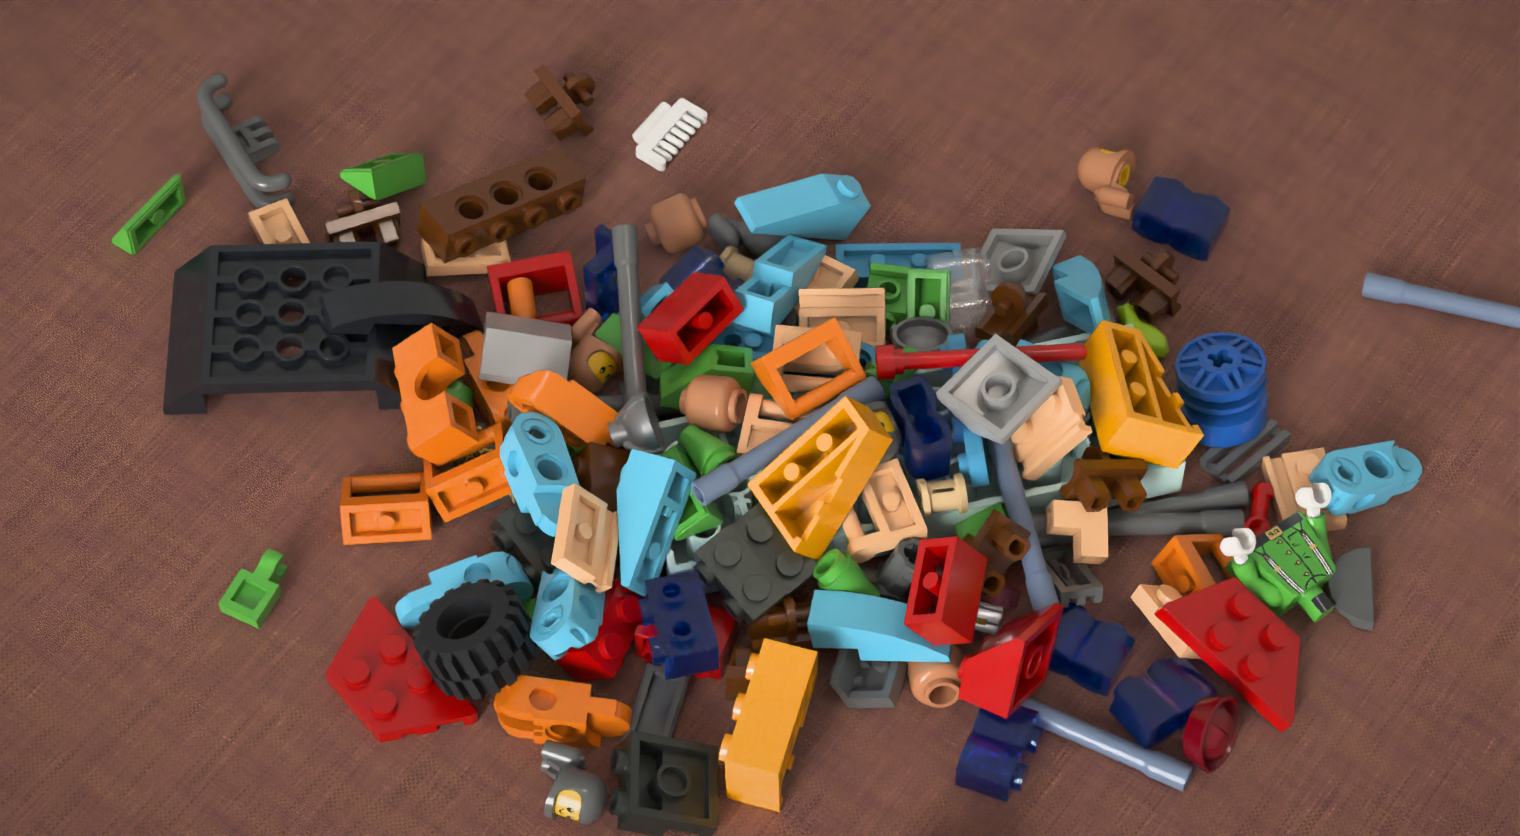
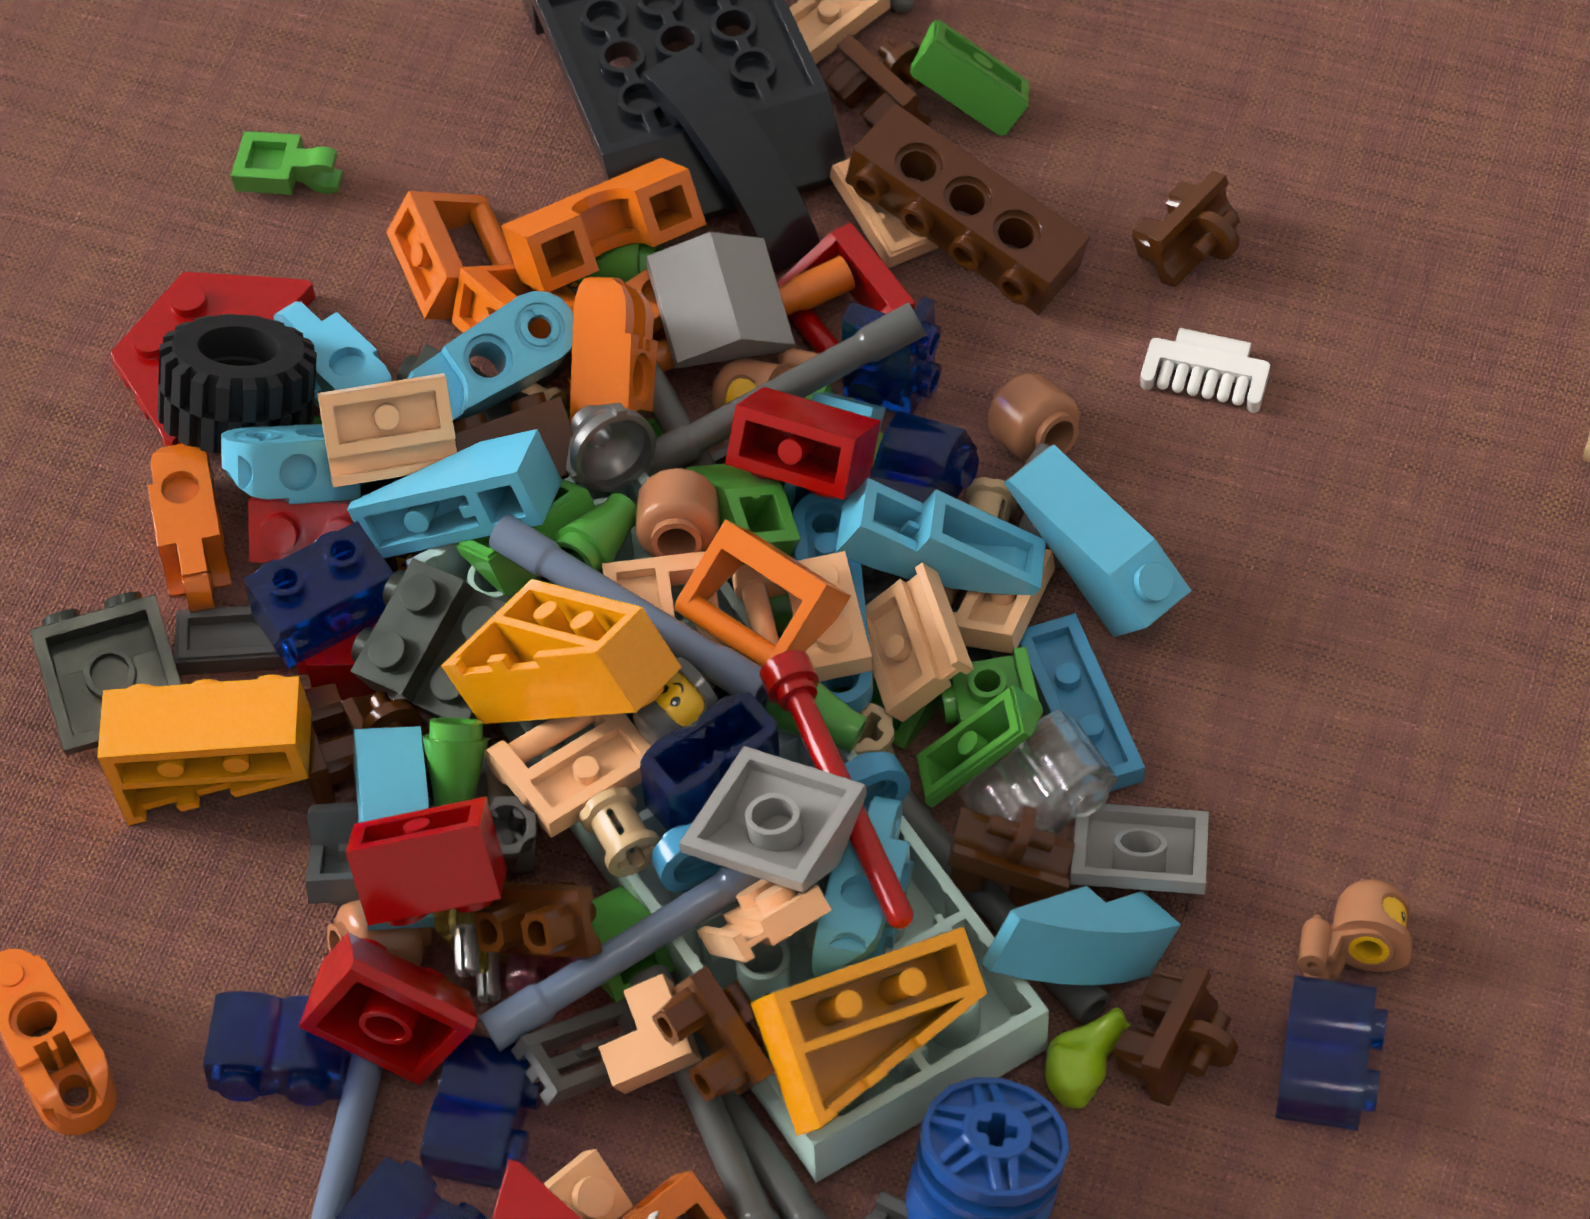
camera: 75 degrees right, 0 degrees up
(574, 791) = (76, 573): dark grey piece -> none
(920, 333) = (918, 740): flat silver piece -> none

